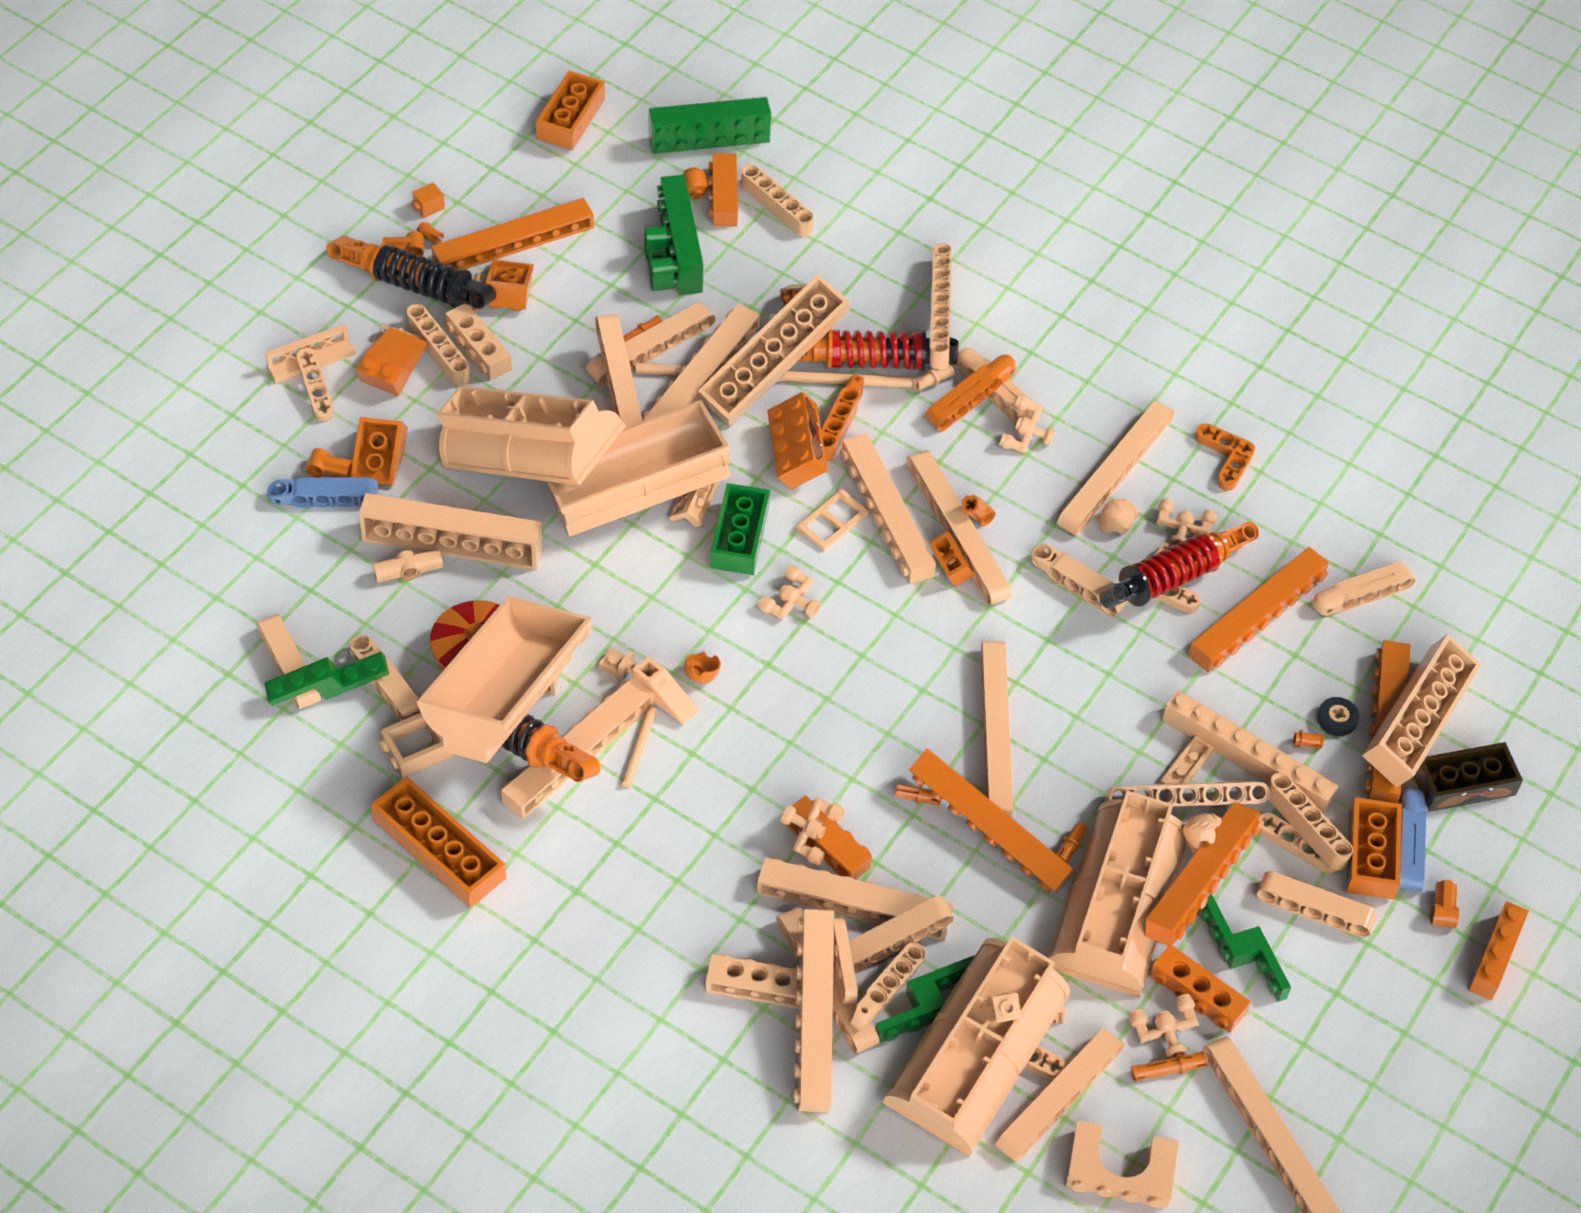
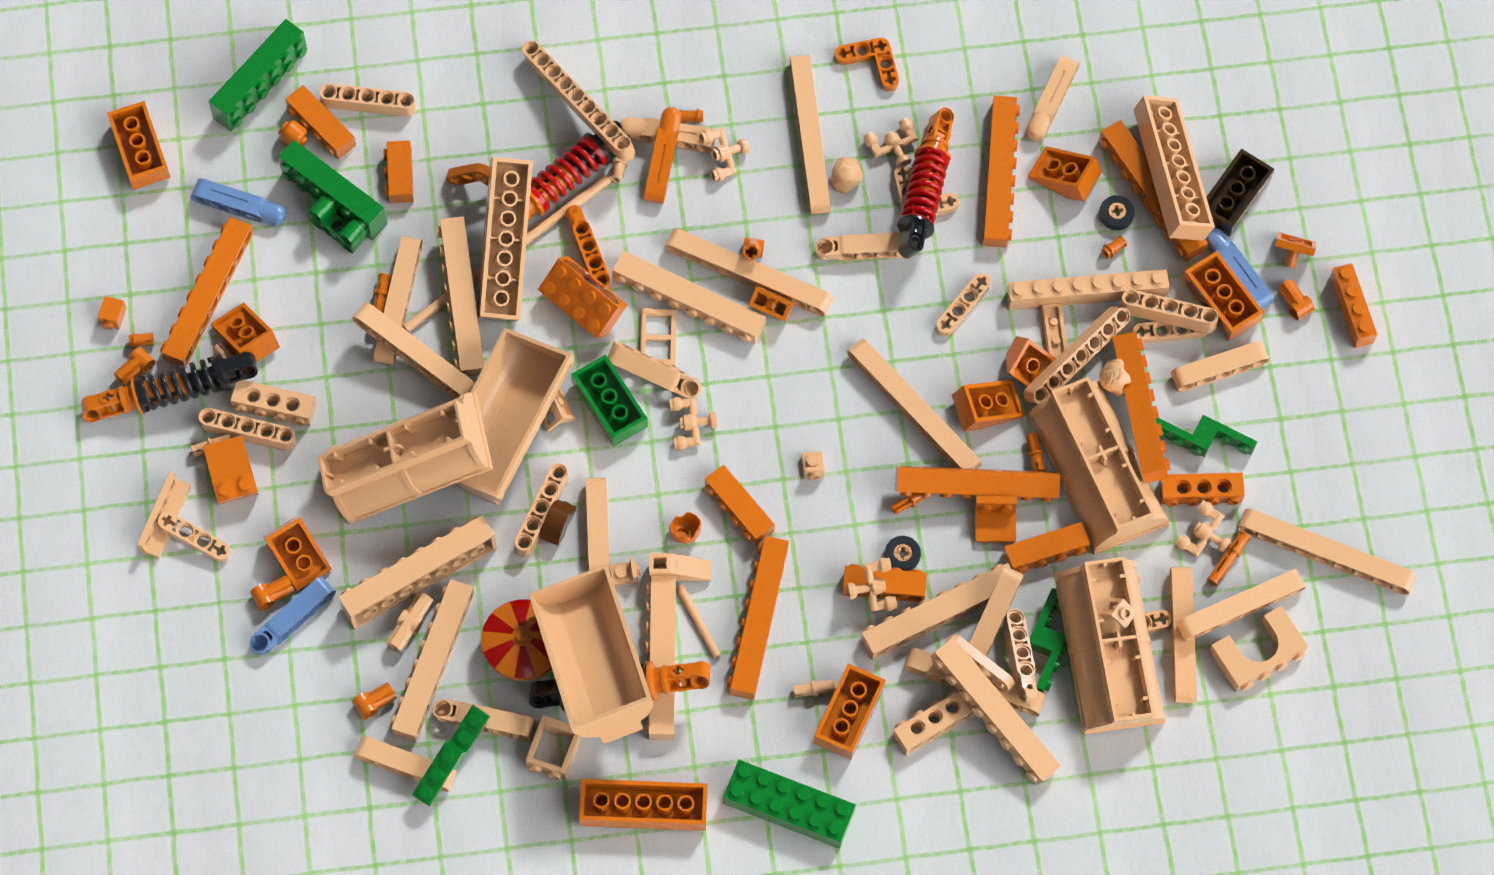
camera: 40 degrees left, 15 degrees up
(310, 596) = (369, 703): none -> orange piece
(394, 605) = (432, 661): none -> light nougat brick
(560, 943) = (789, 804): none -> green brick
(599, 566) = (541, 500): none -> light nougat beam
(600, 580) = (557, 521): none -> reddish brown brick
(602, 197) = (237, 202): none -> medium blue piece
(633, 611) = (597, 522): none -> light nougat beam
(680, 872) = (814, 688): none -> light nougat pin
(689, 911) = (849, 711): none -> orange brick
(691, 781) = (759, 617): none -> orange brick
(749, 262) = (399, 171): none -> orange brick
(766, 685) = (739, 505): none -> orange brick
(800, 535) = (654, 370): none -> light nougat piece
(862, 705) = (813, 465): none -> light nougat bracket
(870, 820) = (911, 548): none -> black bush
(981, 865) = (995, 519): none -> orange bracket
(1001, 921) = (1047, 548): none -> orange brick
(1033, 390) = (691, 116): none -> orange pin
(1065, 772) = (987, 404): none -> orange slope
(1125, 688) = (961, 303): none -> light nougat beam
(1135, 765) = (1026, 360): none -> orange slope
(1140, 1110) = (1240, 605): none -> light nougat beam
(1320, 653) = (1066, 172): none -> orange slope
(1483, 860) = (1295, 246): none -> orange tile

